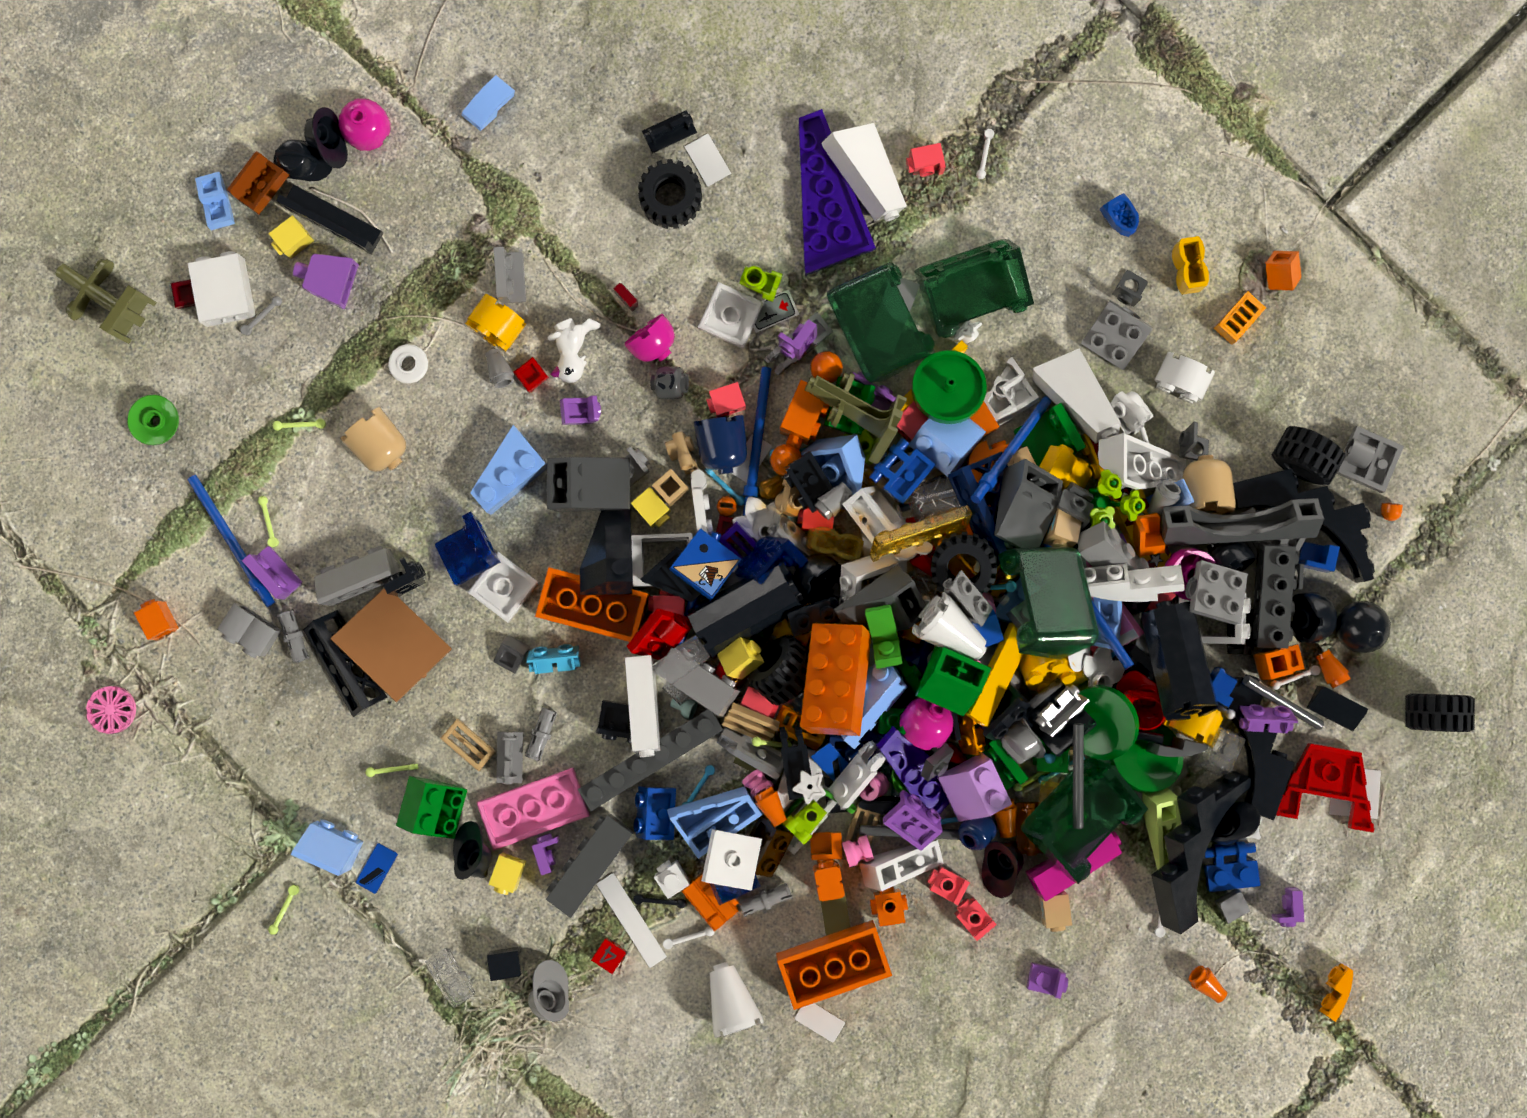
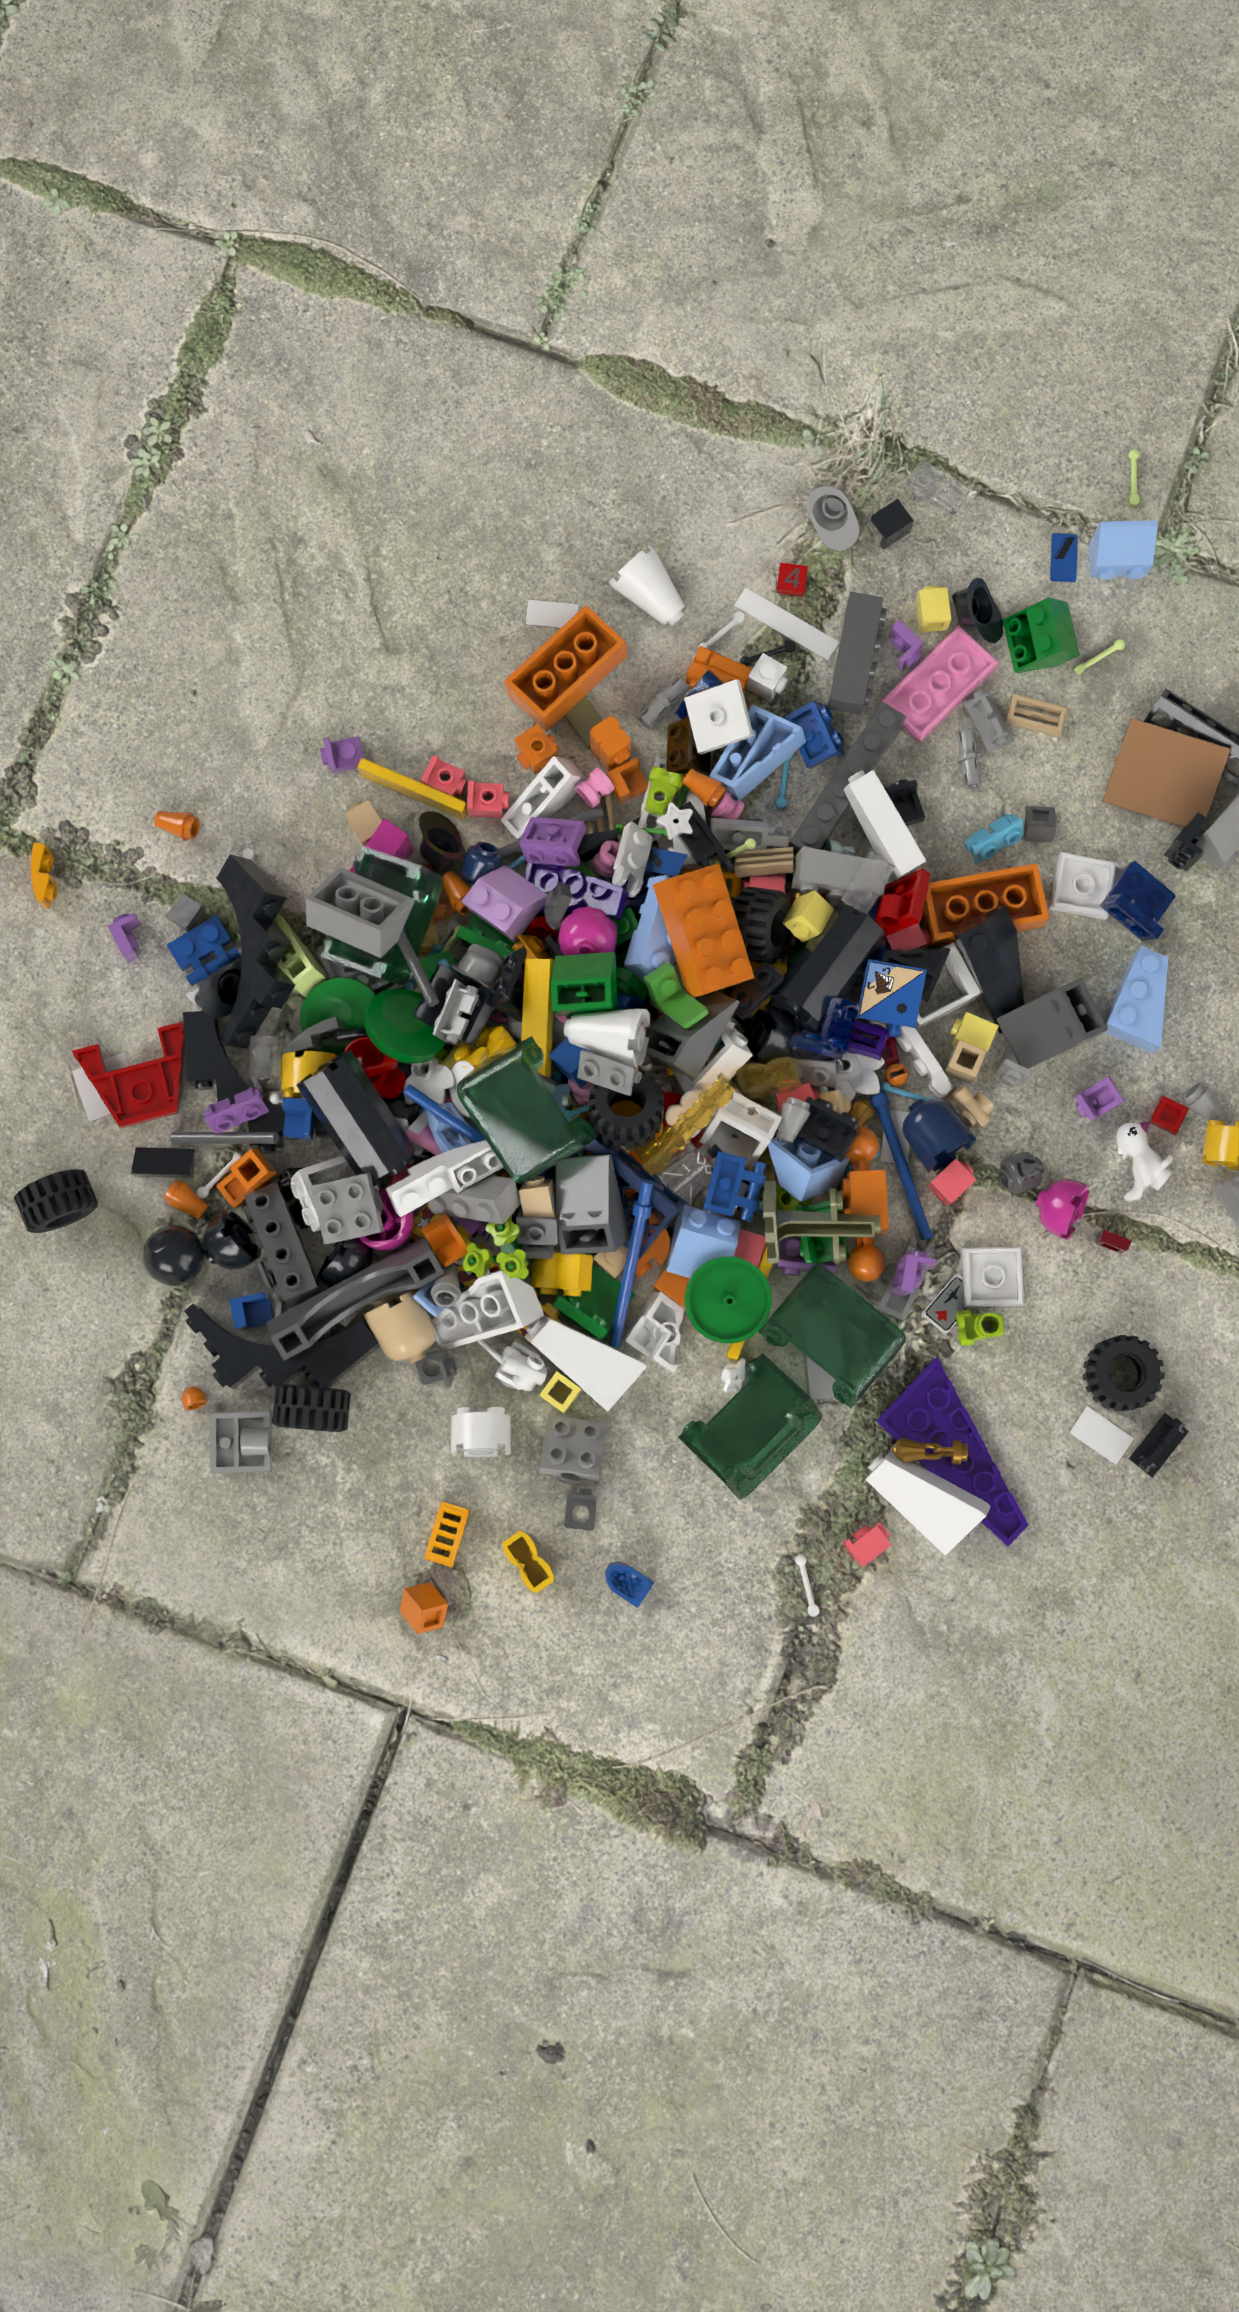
camera: 155 degrees right, 5 degrees down
(861, 211) = (910, 1450): none -> pearl gold piece
(1005, 924) = (412, 788): none -> yellow tile
(1104, 829) = (358, 912): none -> light grey slope
(1111, 378) = (560, 1392): none -> light yellow brick

